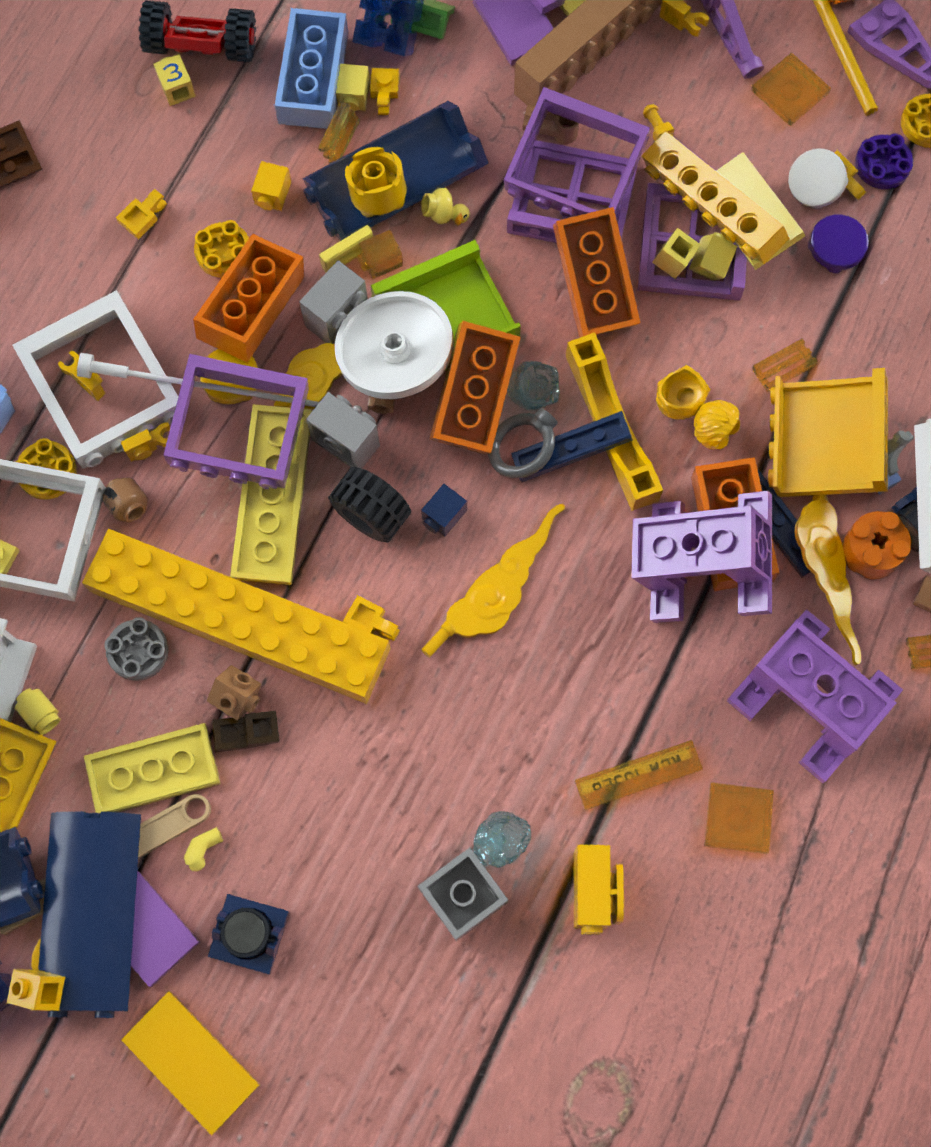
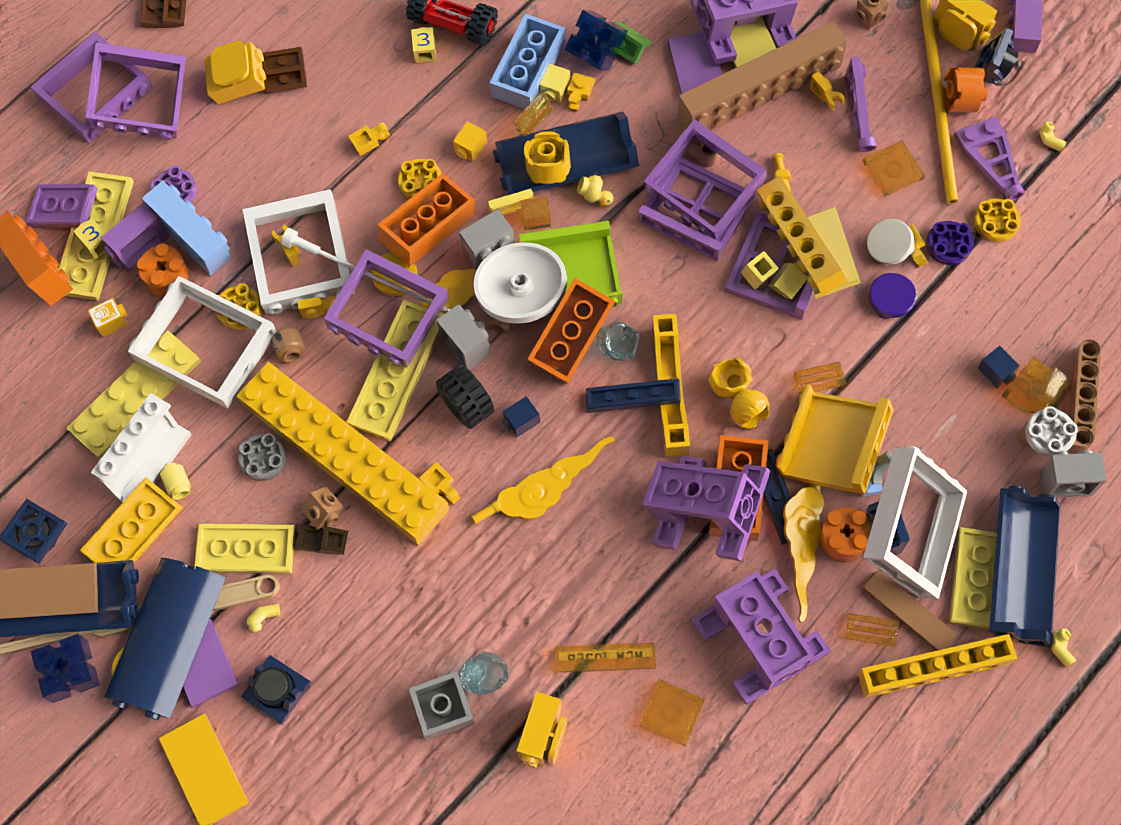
camera: 20 degrees right, 5 degrees down
(35, 989) = (108, 680): yellow brick -> none
(544, 424) = (617, 373): dark grey piece -> none
(596, 272) = (691, 269): orange brick -> none

